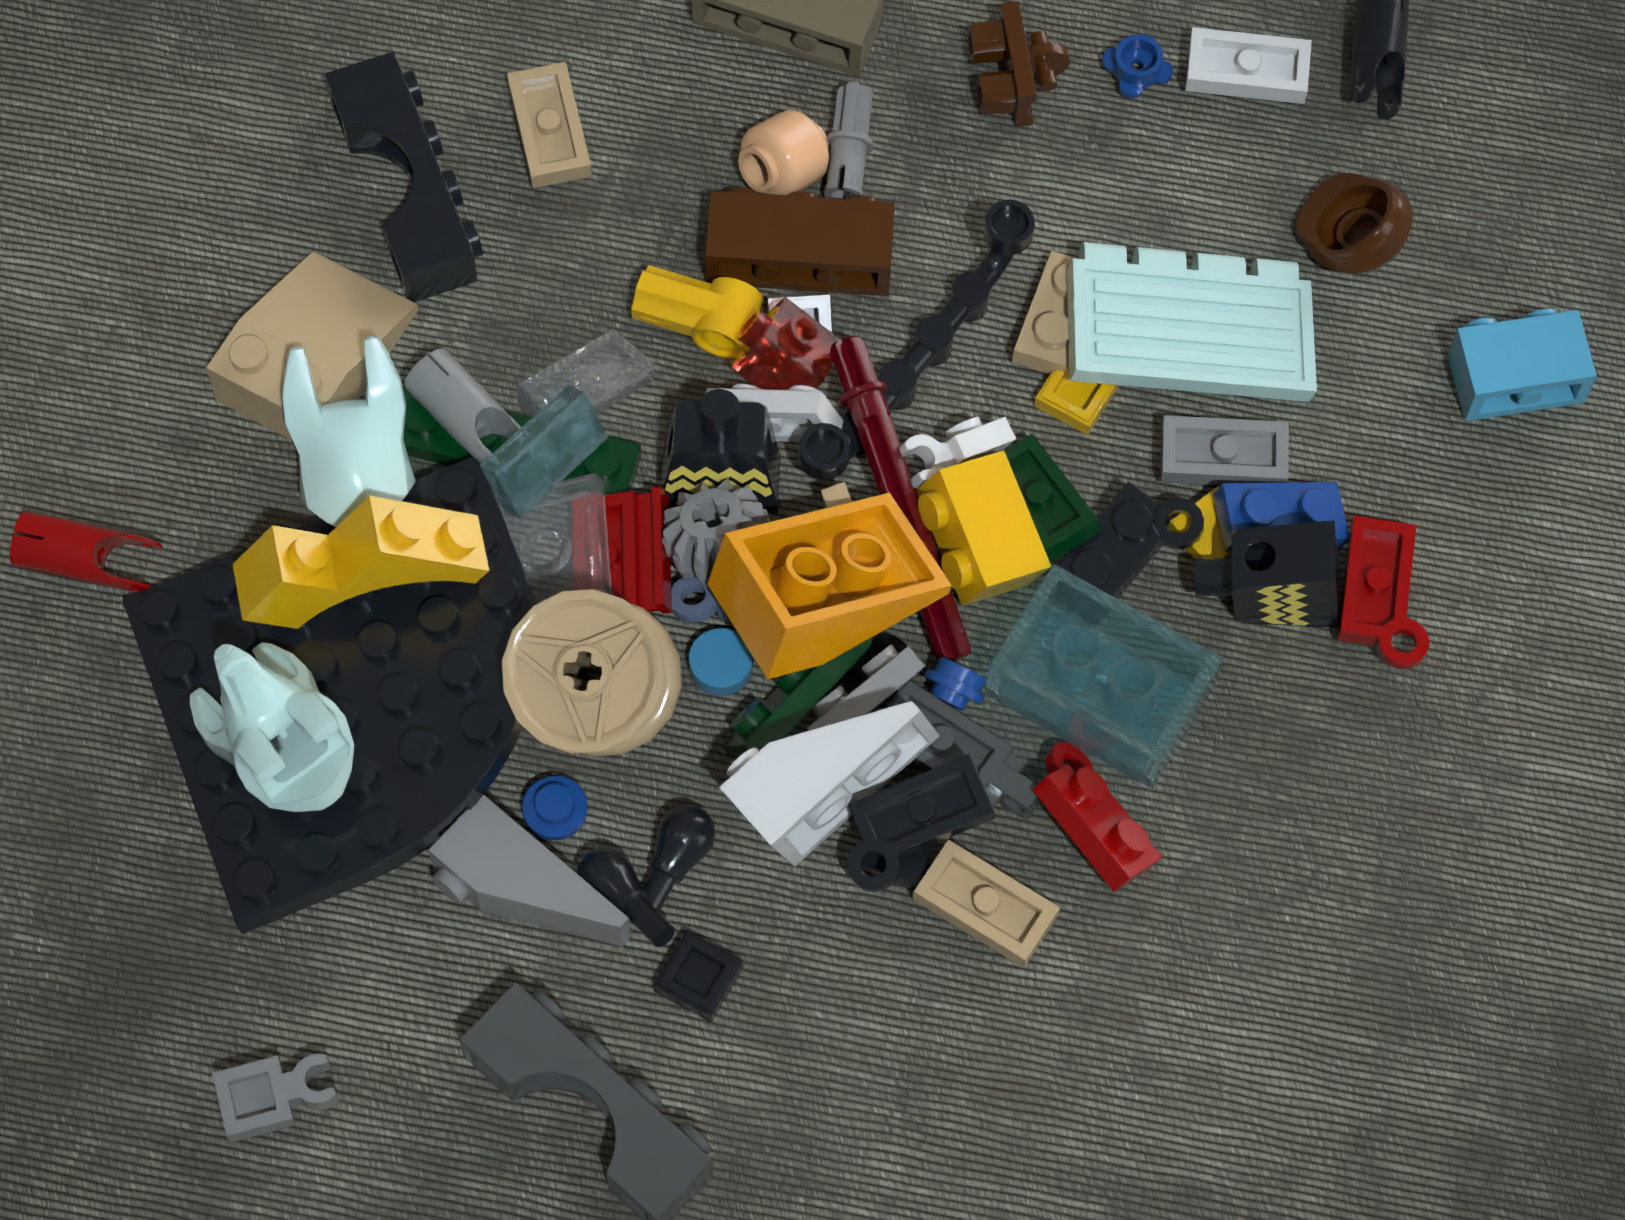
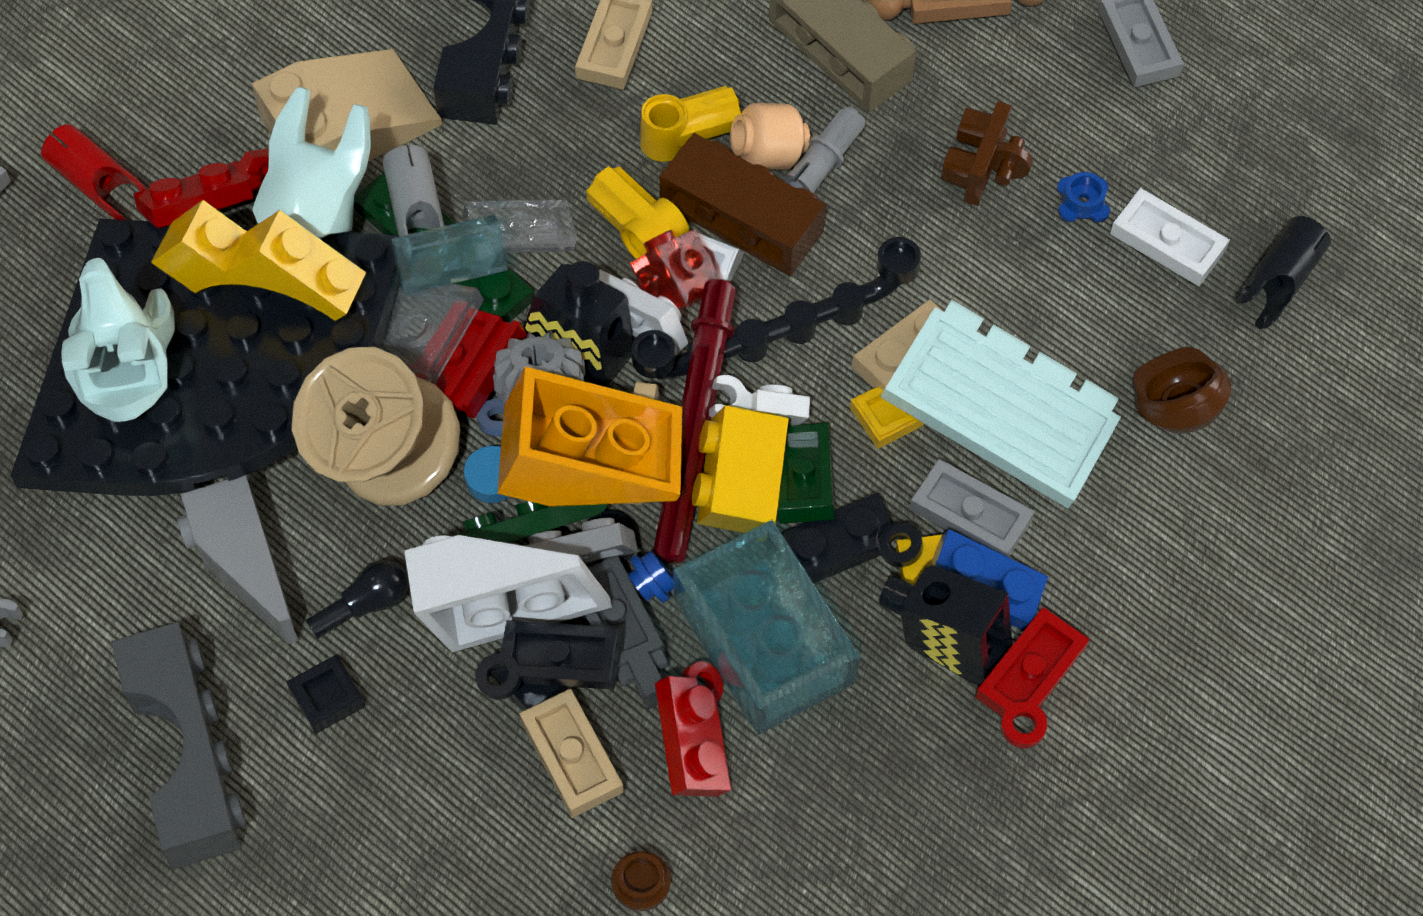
camera: 30 degrees right, 5 degrees down
(224, 508) = (215, 183): none -> red hinge
(555, 808) = (301, 516): blue plate -> none
(616, 880) = (304, 590): black piece -> none
(687, 177) = (671, 121): none -> yellow piece
(1131, 992) = (641, 881): none -> reddish brown plate
(1521, 364) = (1253, 560): medium azure brick -> none

